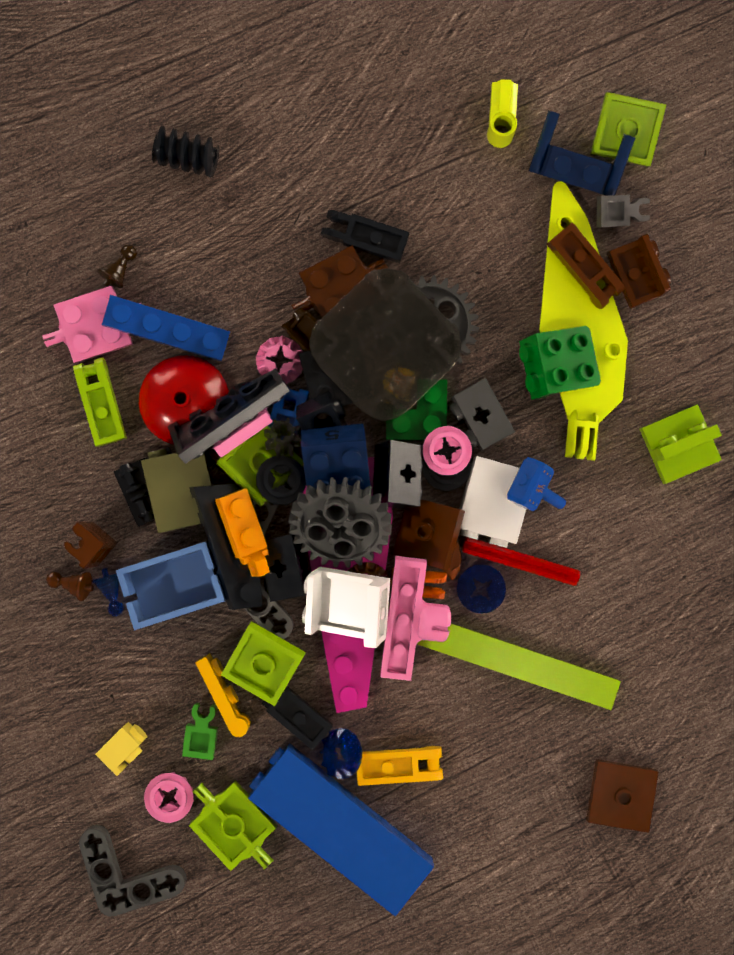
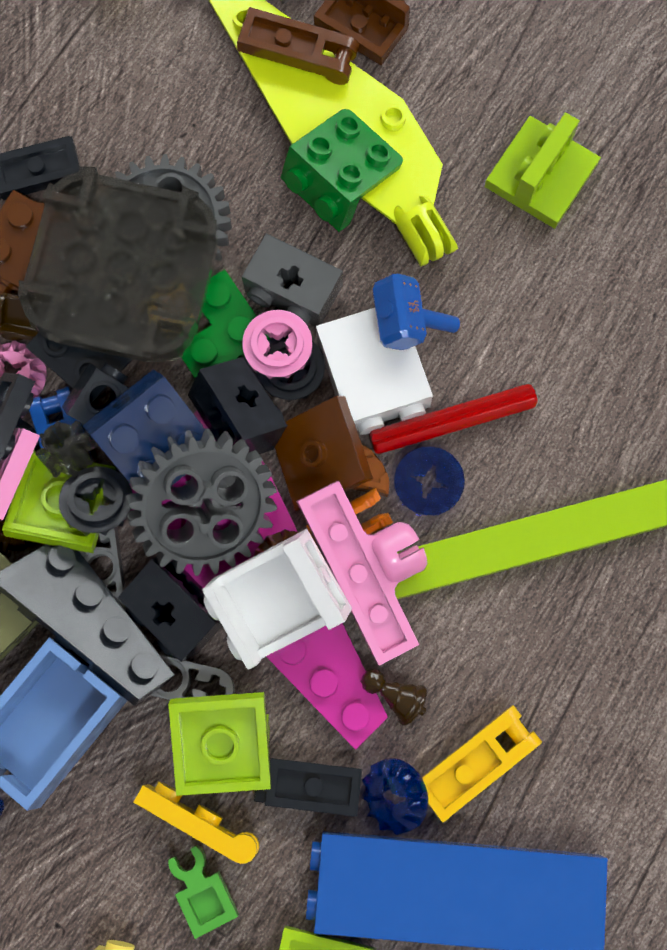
camera: 25 degrees left, 10 degrees down
(244, 531) = (89, 592): light orange hinge -> none
(382, 704) = (403, 699): none -> dark brown piece

